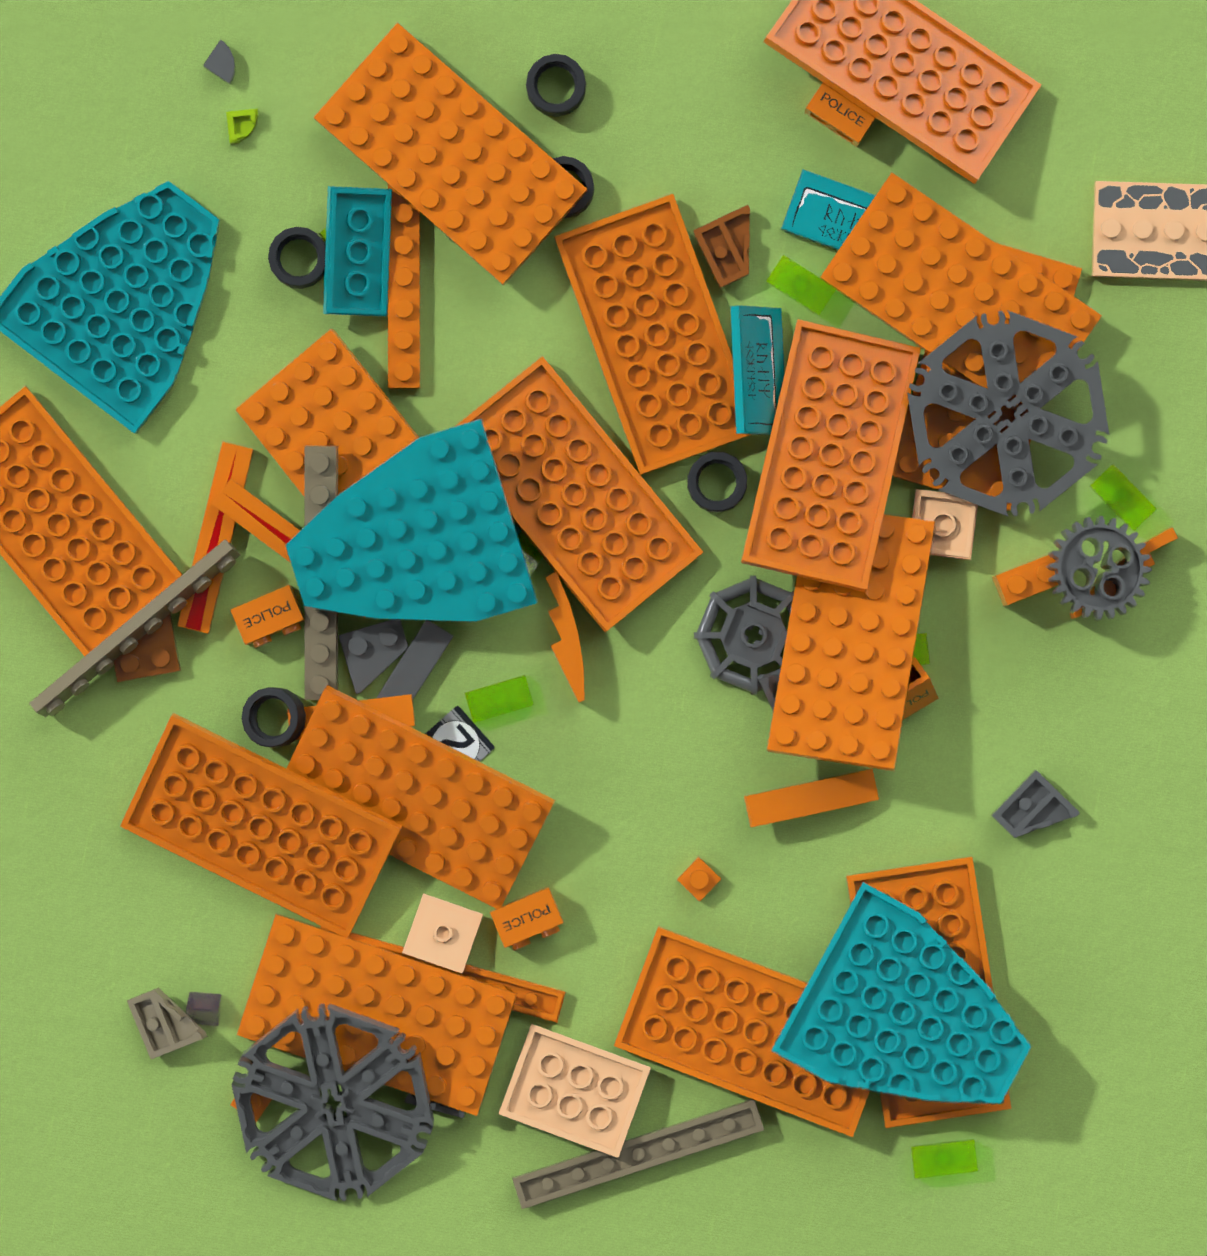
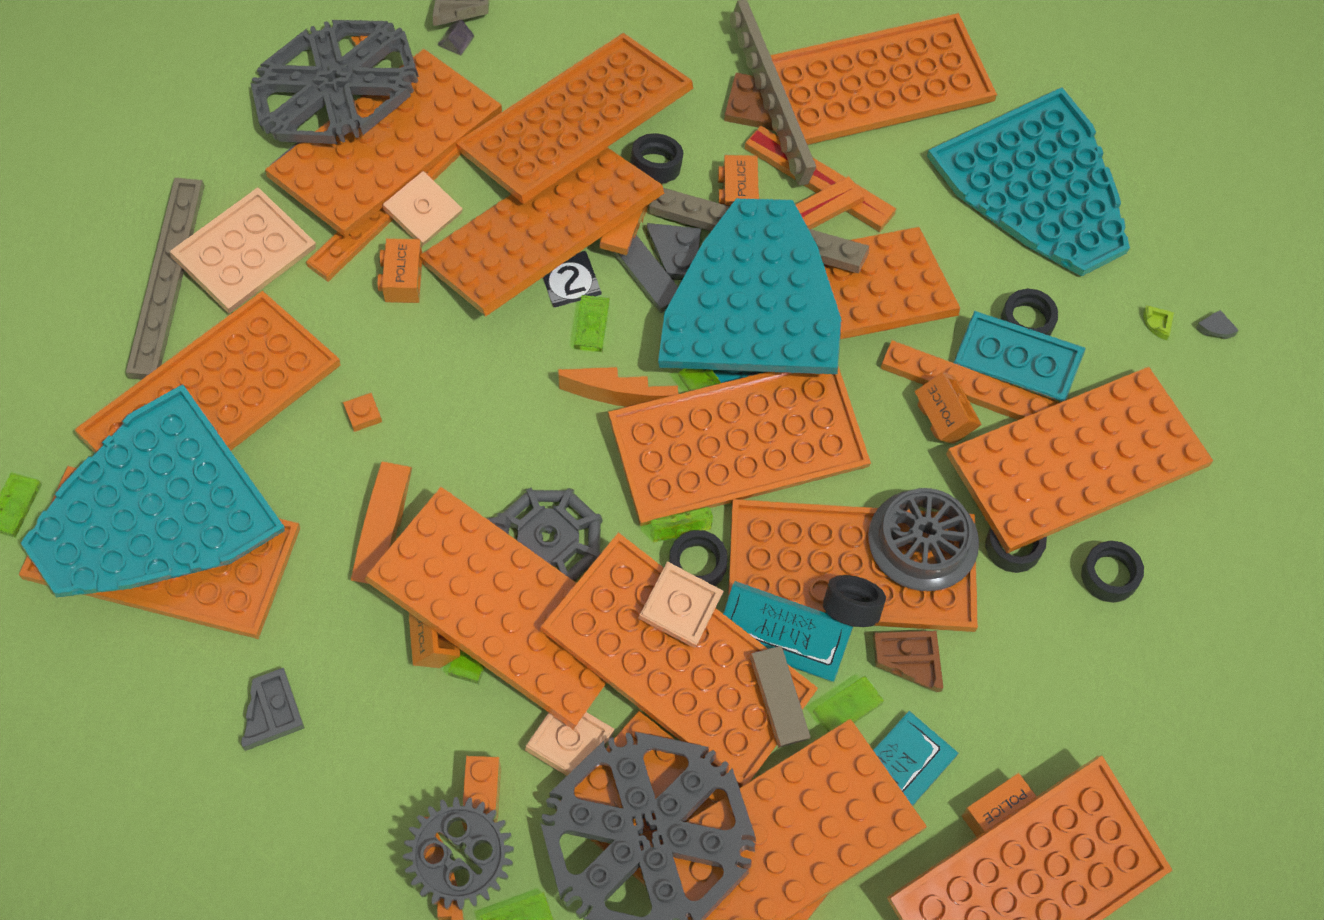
camera: 110 degrees right, 25 degrees down
(449, 302) = (947, 408): none -> orange brick
(601, 318) = (886, 538): none -> dark grey piece
(688, 511) = (677, 524): none -> clear neon green plate
(728, 314) = (854, 601): none -> black tyre
(787, 471) = (681, 604): none -> light nougat plate
(825, 349) = (780, 696): none -> dark tan tile

